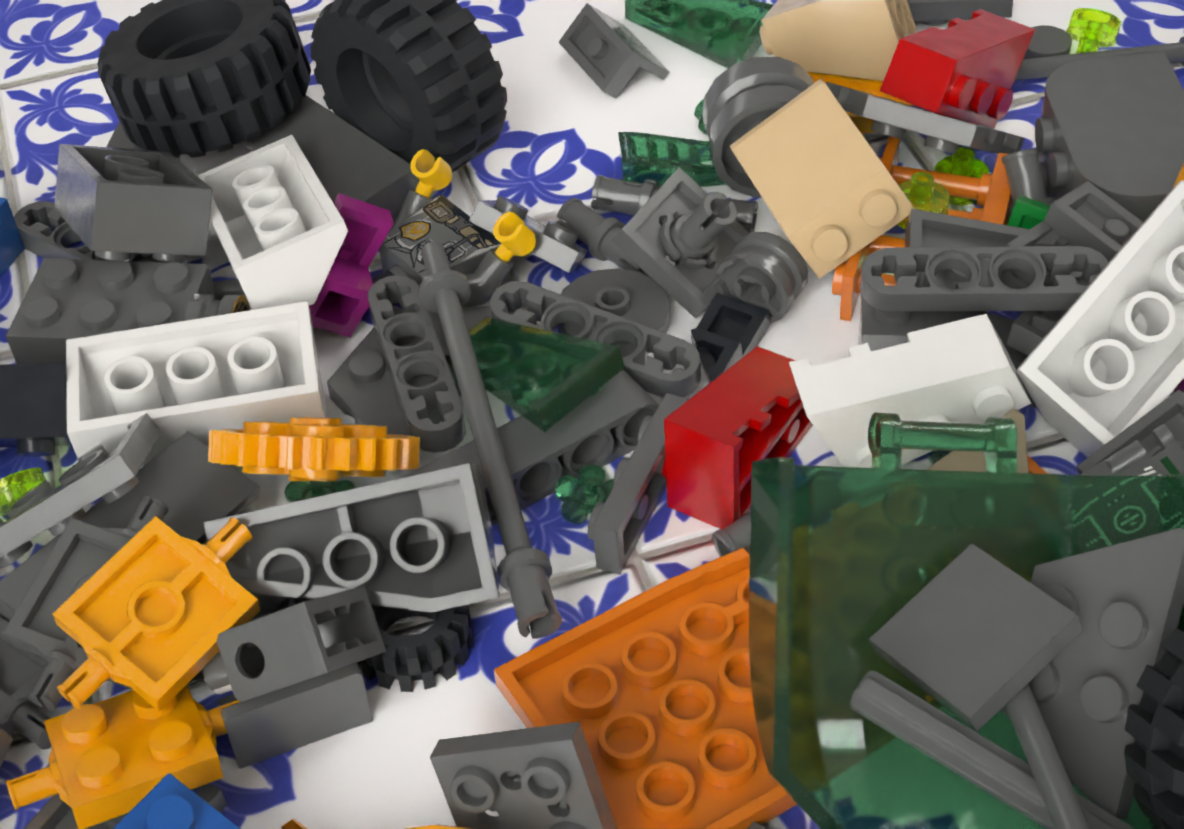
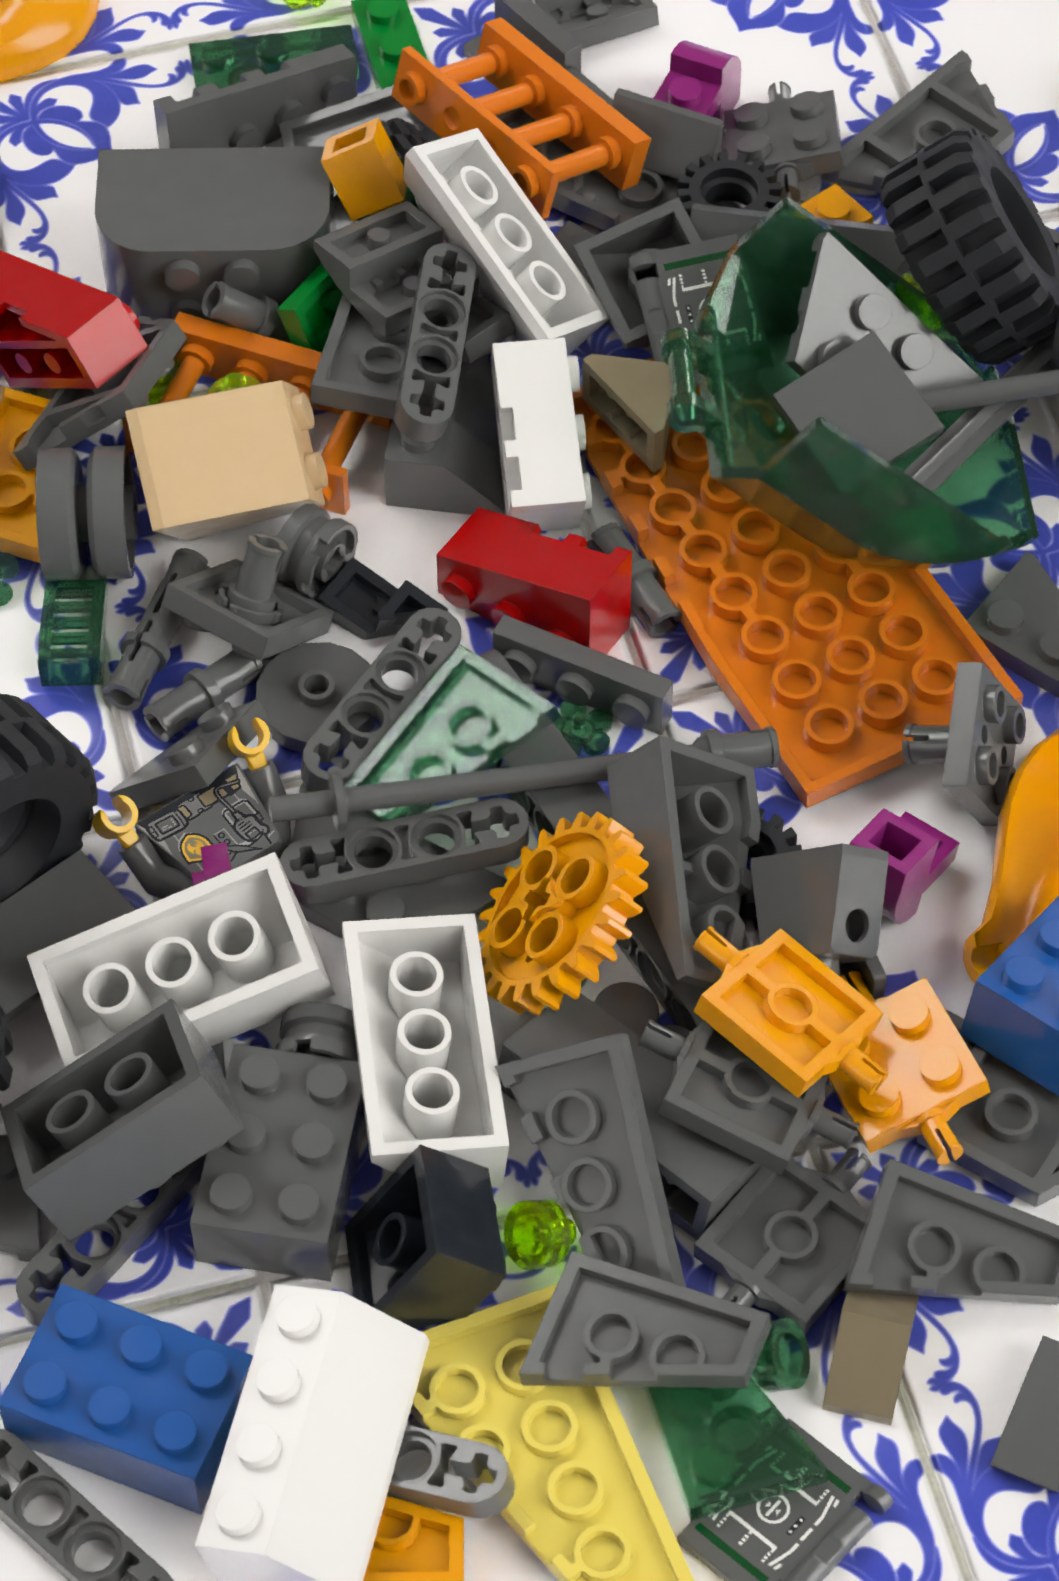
camera: 90 degrees left, 10 degrees up
(376, 740) = (915, 859): none -> magenta brick

